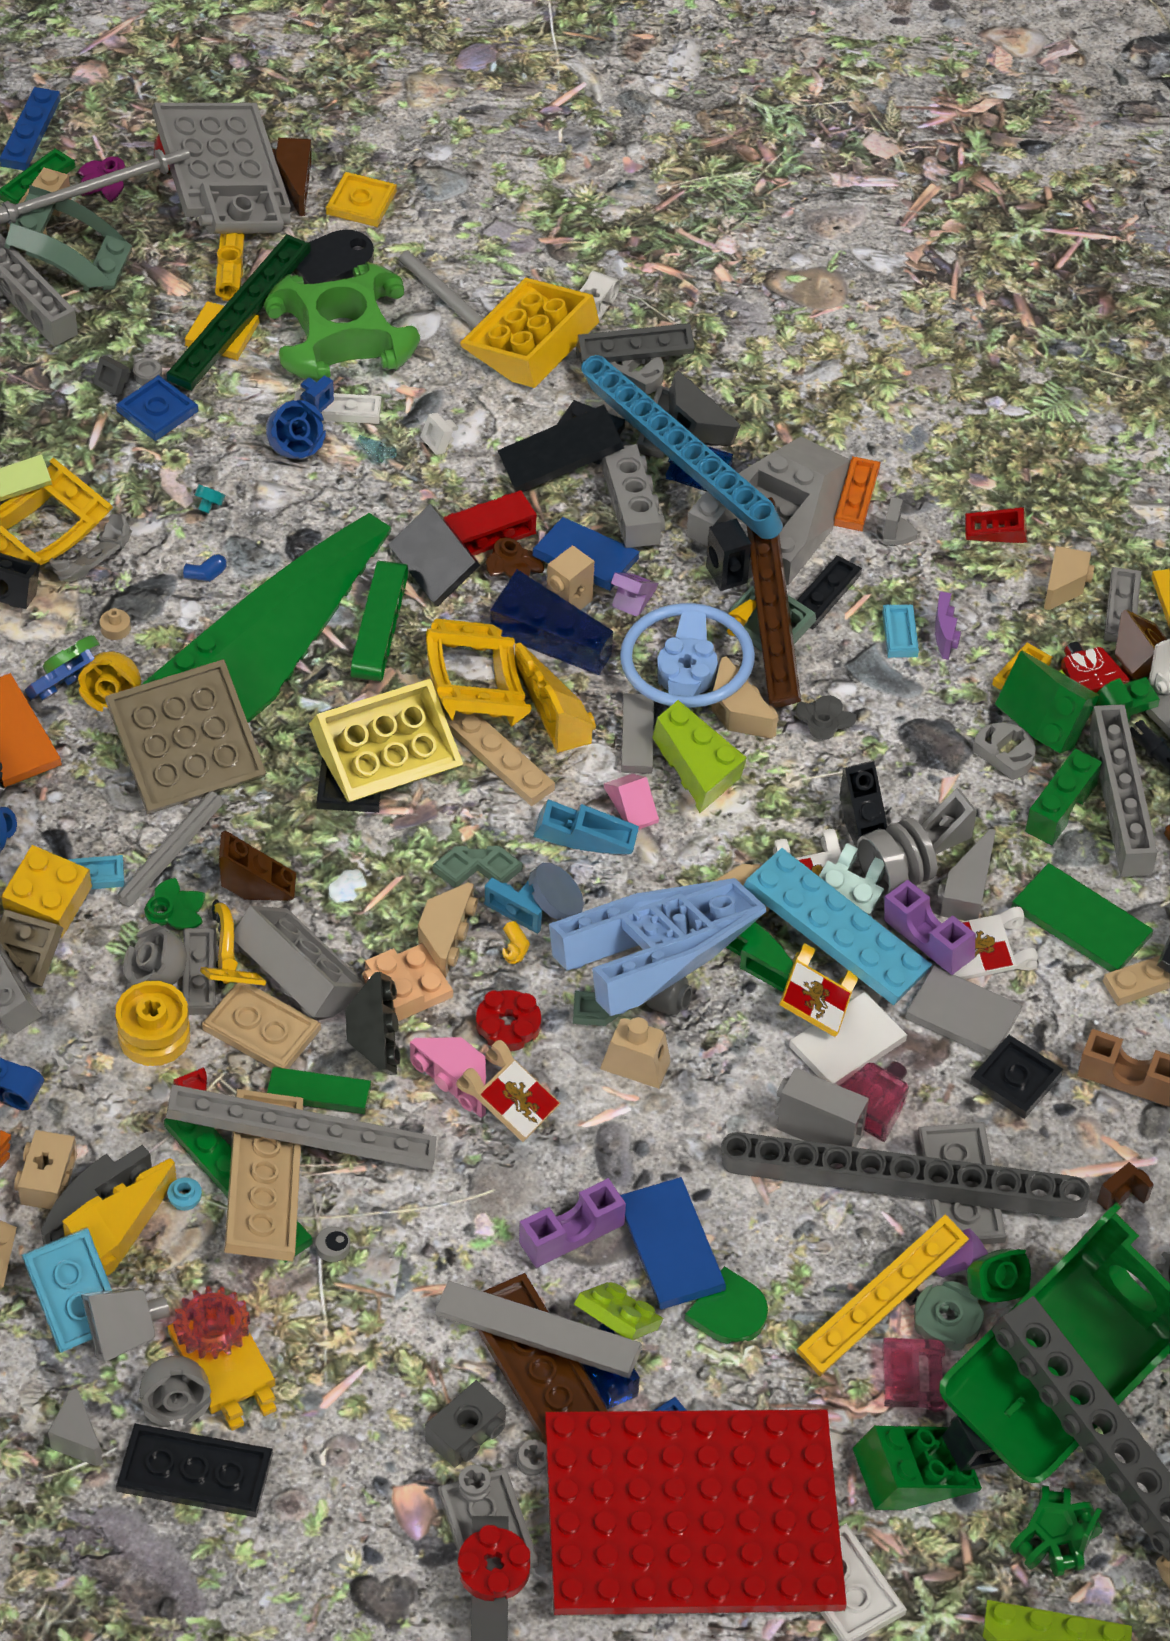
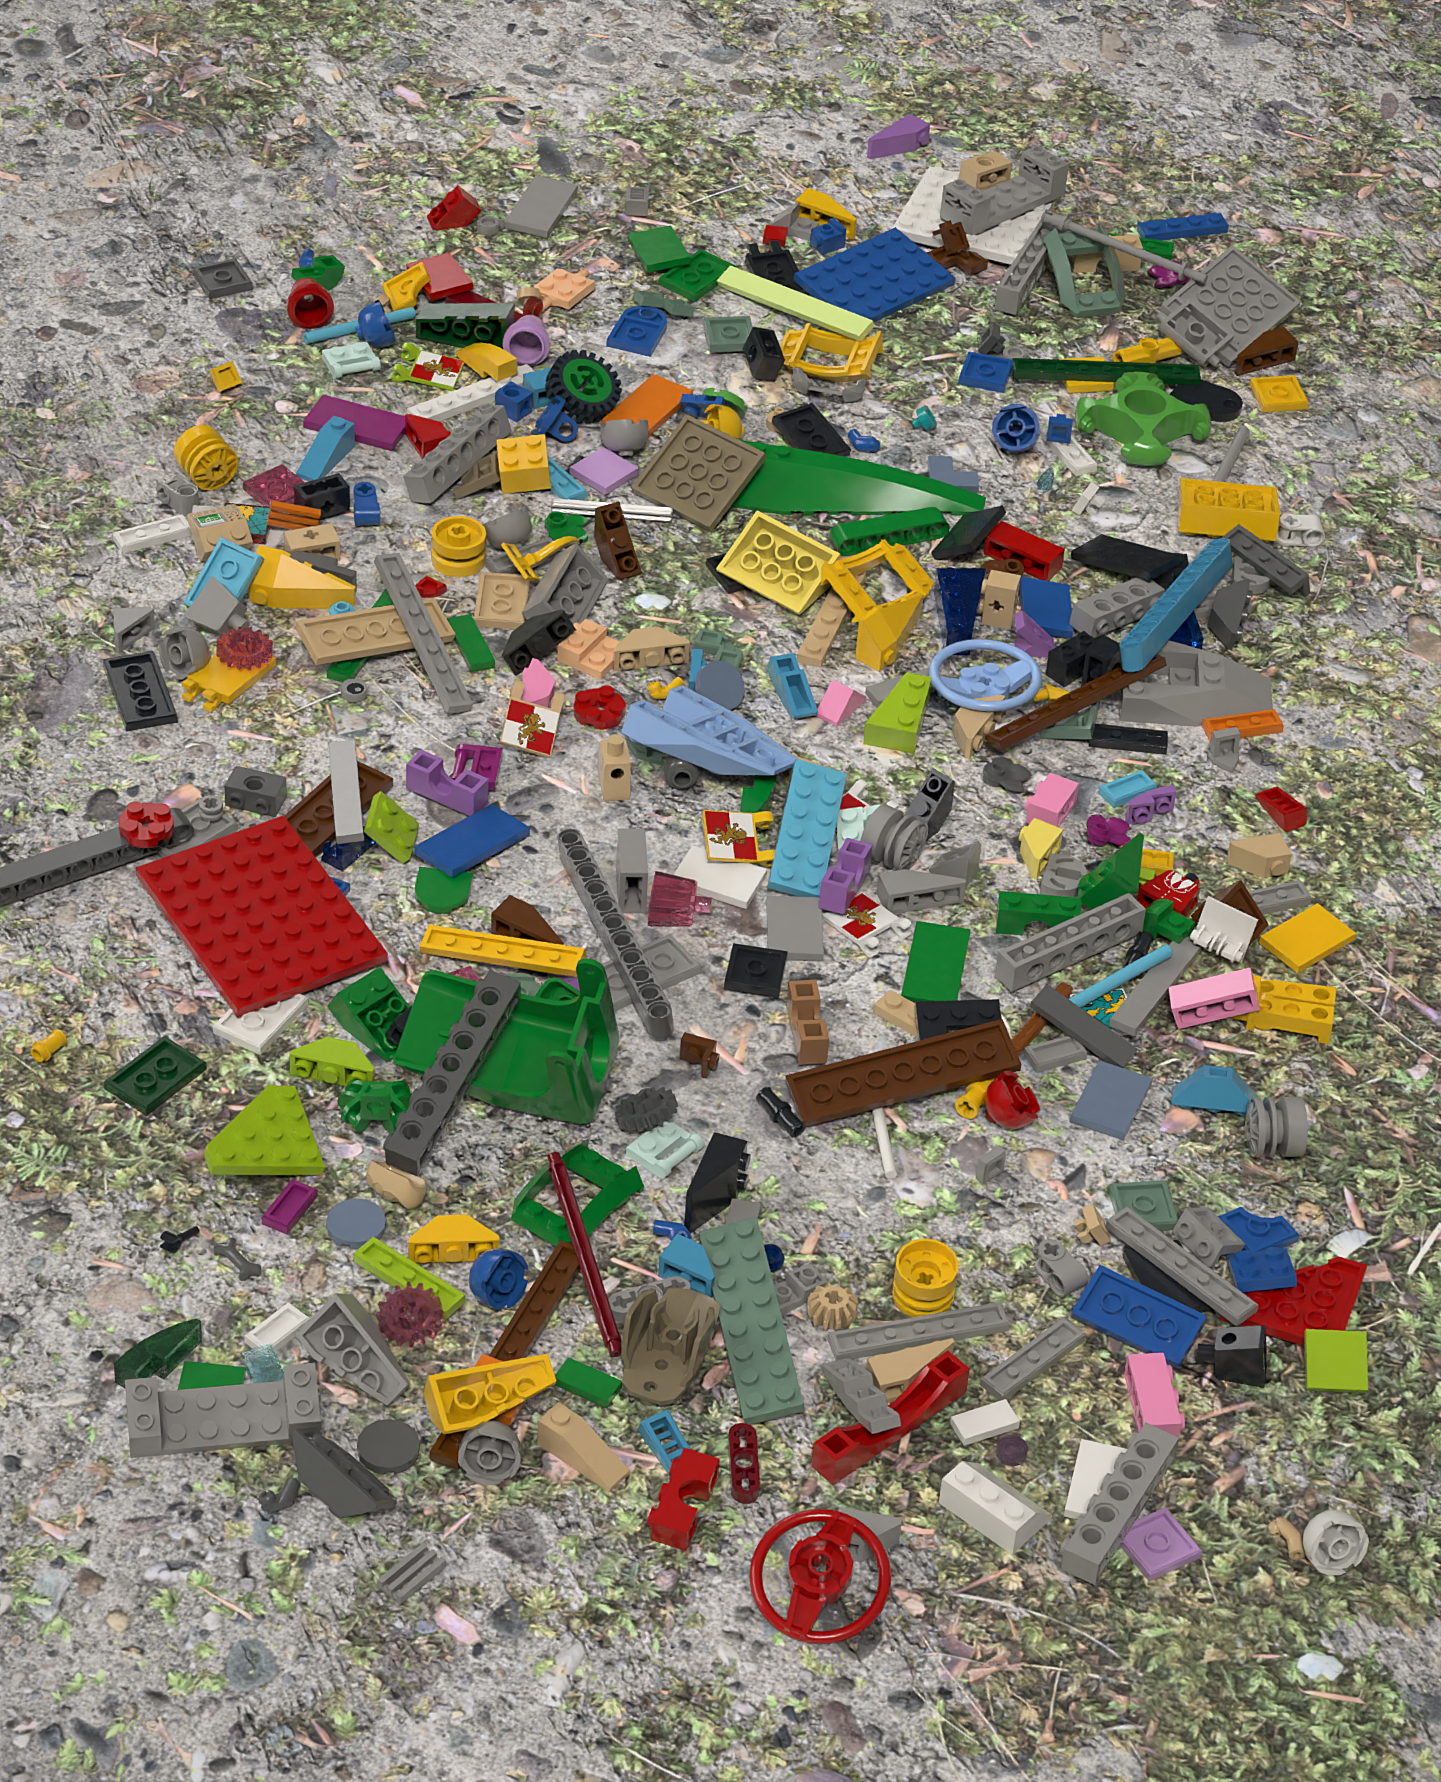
camera: 60 degrees right, 10 degrees down
(60, 771) = (624, 435): none -> light grey cylinder
(93, 823) = (604, 470): none -> lavender tile
(166, 607) = (809, 430): none -> black tile
(312, 530) = (941, 469): none -> sand blue tile
(549, 1174) = (485, 762): none -> magenta plate
(689, 570) = (1067, 660): none -> black brick
(847, 1255) = (521, 920): none -> reddish brown slope
(897, 701) = (1052, 800): none -> bright pink brick
(956, 678) = (1103, 830): none -> magenta plate
(958, 745) = (1037, 843): none -> light yellow slope
(976, 1541) = (331, 1062): none -> lime slope

